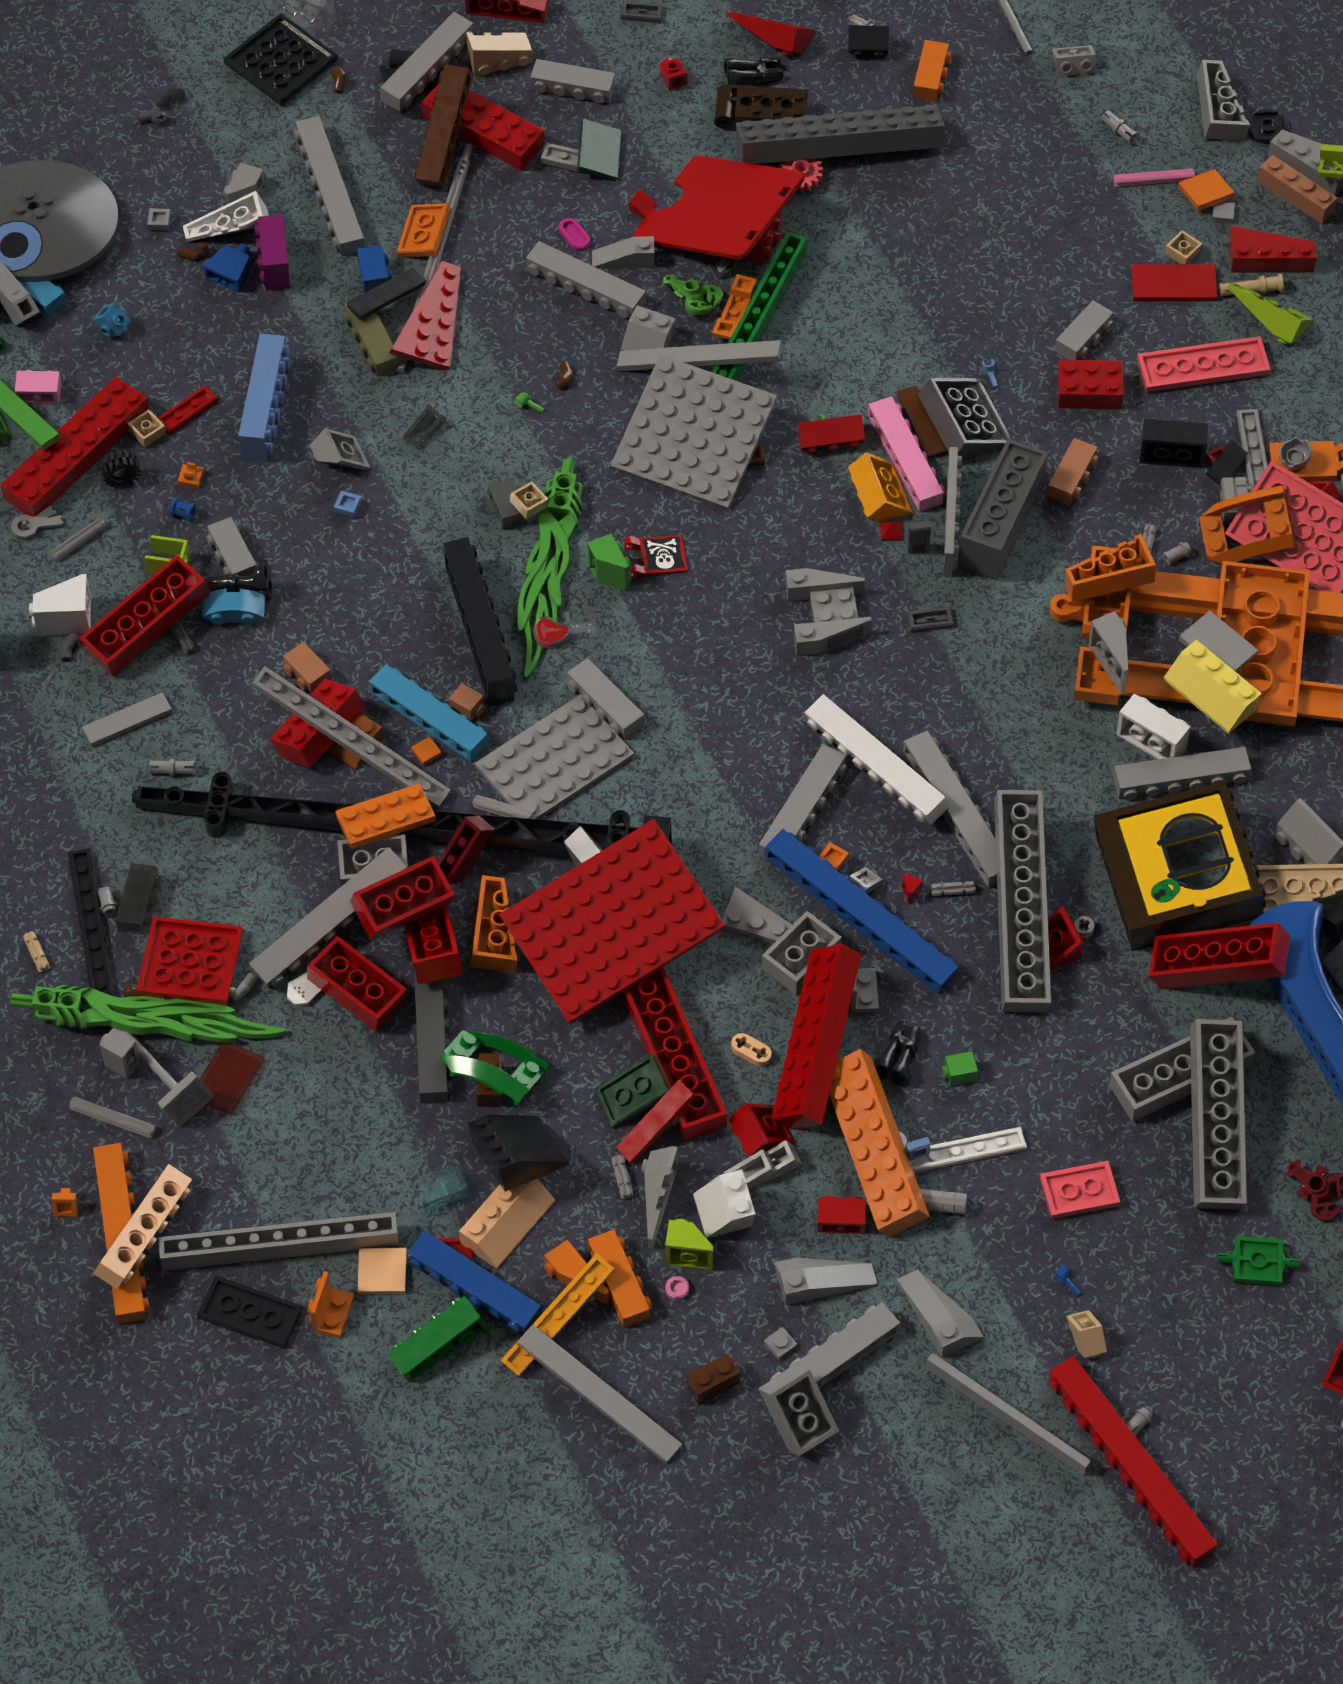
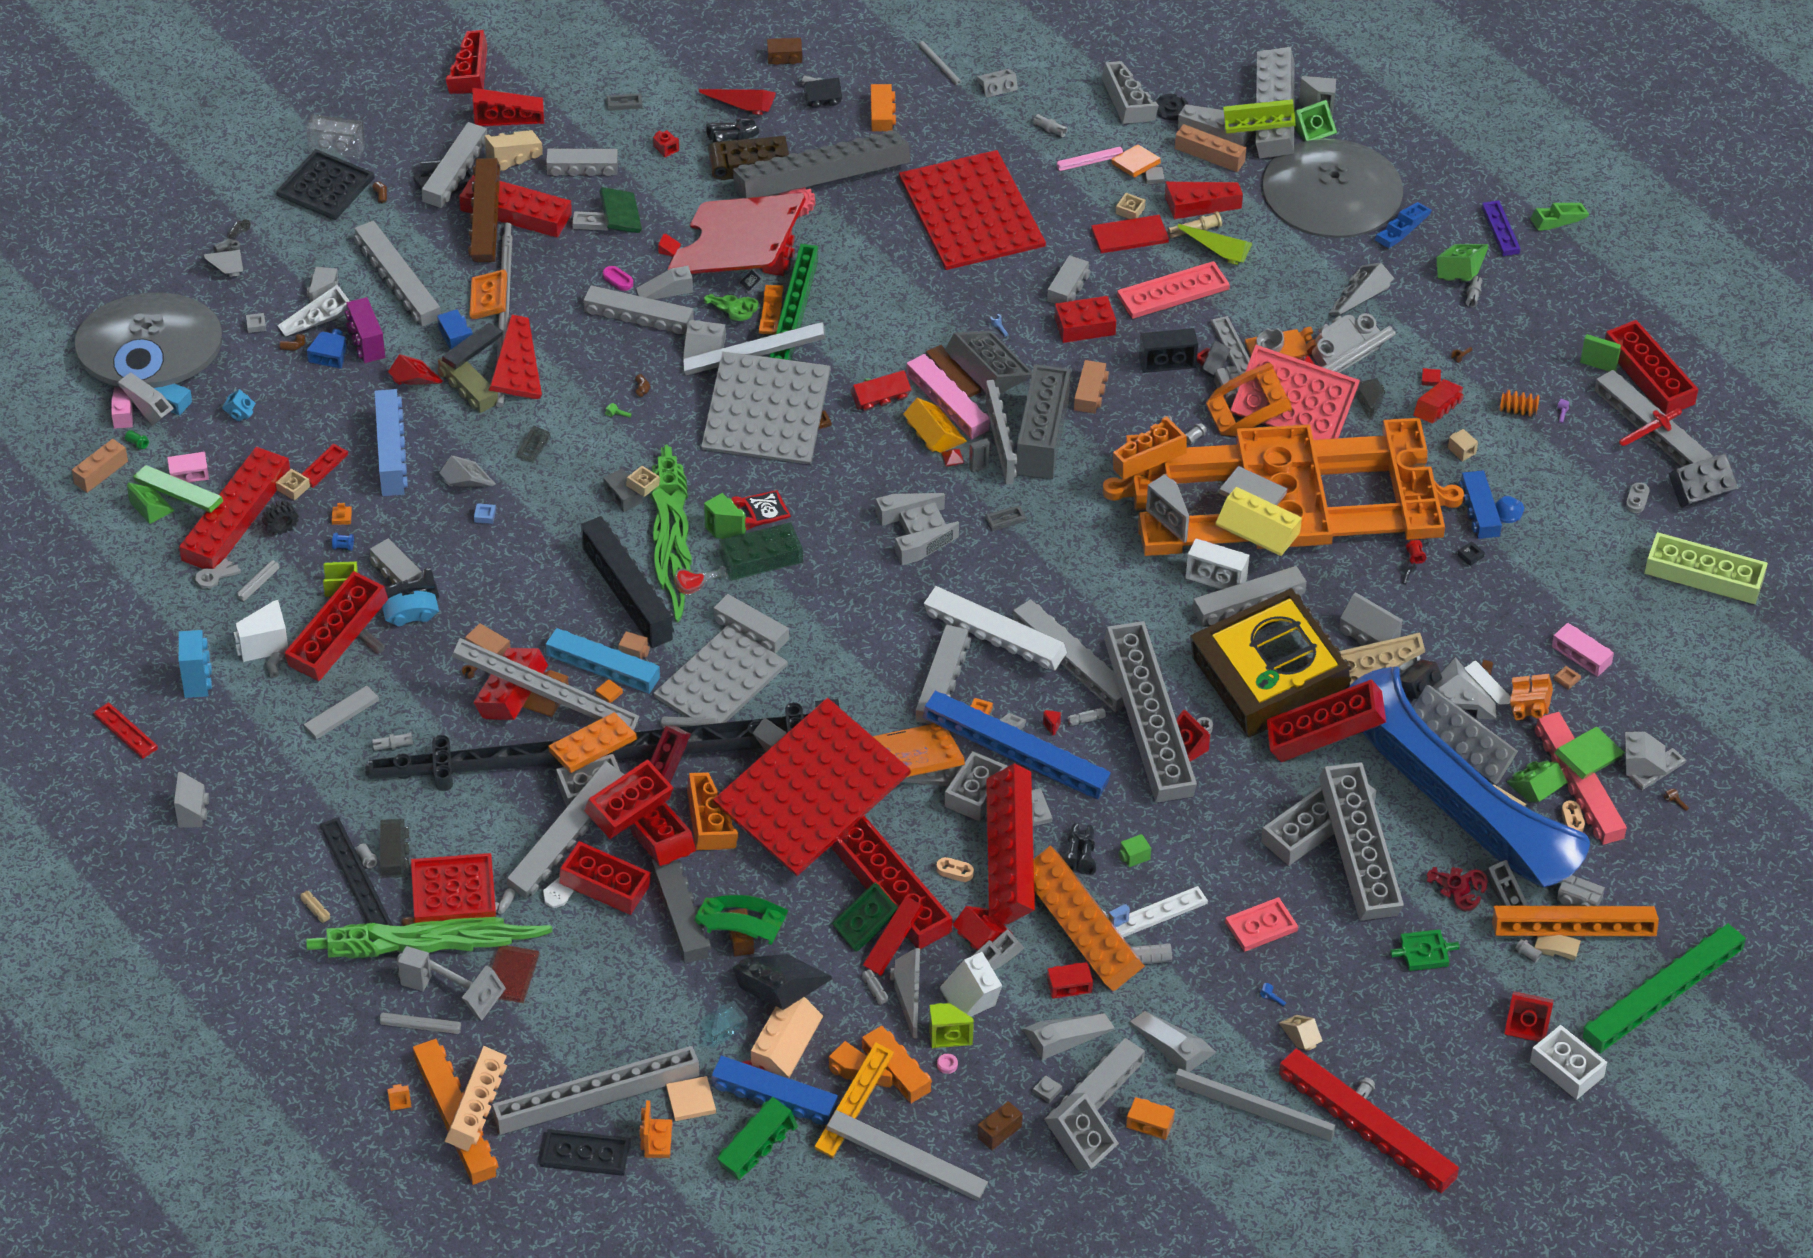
camera: 15 degrees left, 10 degrees down
(145, 137) = (227, 262): none -> light grey slope
(315, 311) = (412, 372): none -> red slope
(640, 610) = (761, 551): none -> clear green brick
(748, 894) = (923, 748): none -> orange plate
(885, 1405) = (1150, 1118): none -> orange brick
(999, 219) = (972, 209): none -> red plate

